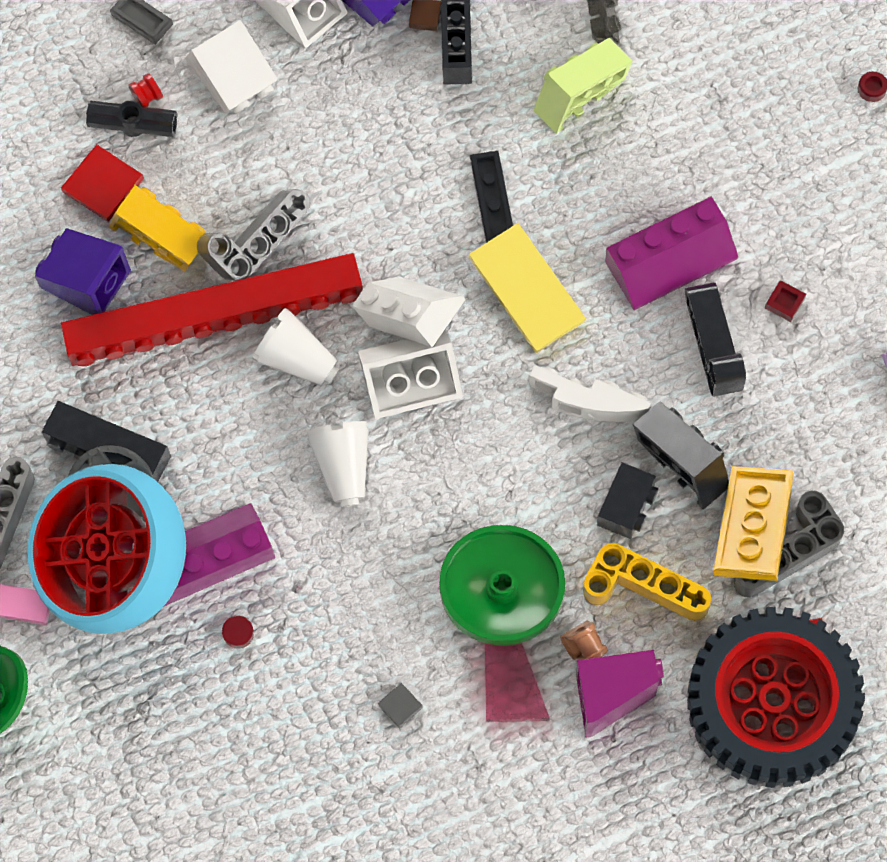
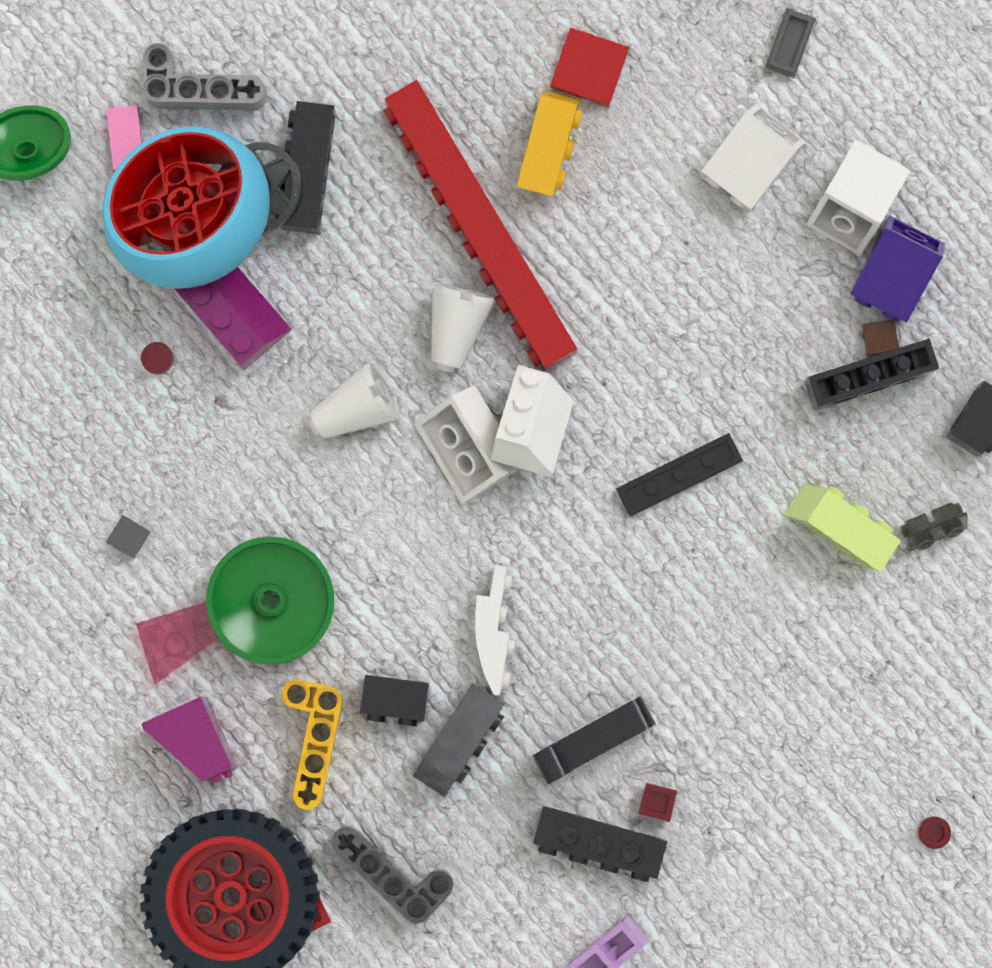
camera: 70 degrees right, 15 degrees up
(83, 271) = (481, 81): dark purple slope -> none
(114, 117) = (665, 54): black piece -> none
(145, 90) = (702, 76): red wheel -> none
(258, 229) = (576, 244): beam -> none
(527, 288) = (595, 534): light yellow tile -> none
(583, 642) = (233, 698): nougat piece -> none
(671, 253) = (675, 673): magenta slope -> none
(753, 523) = (403, 831): yellow tile -> none
(828, 318) = (650, 848): none -> black brick

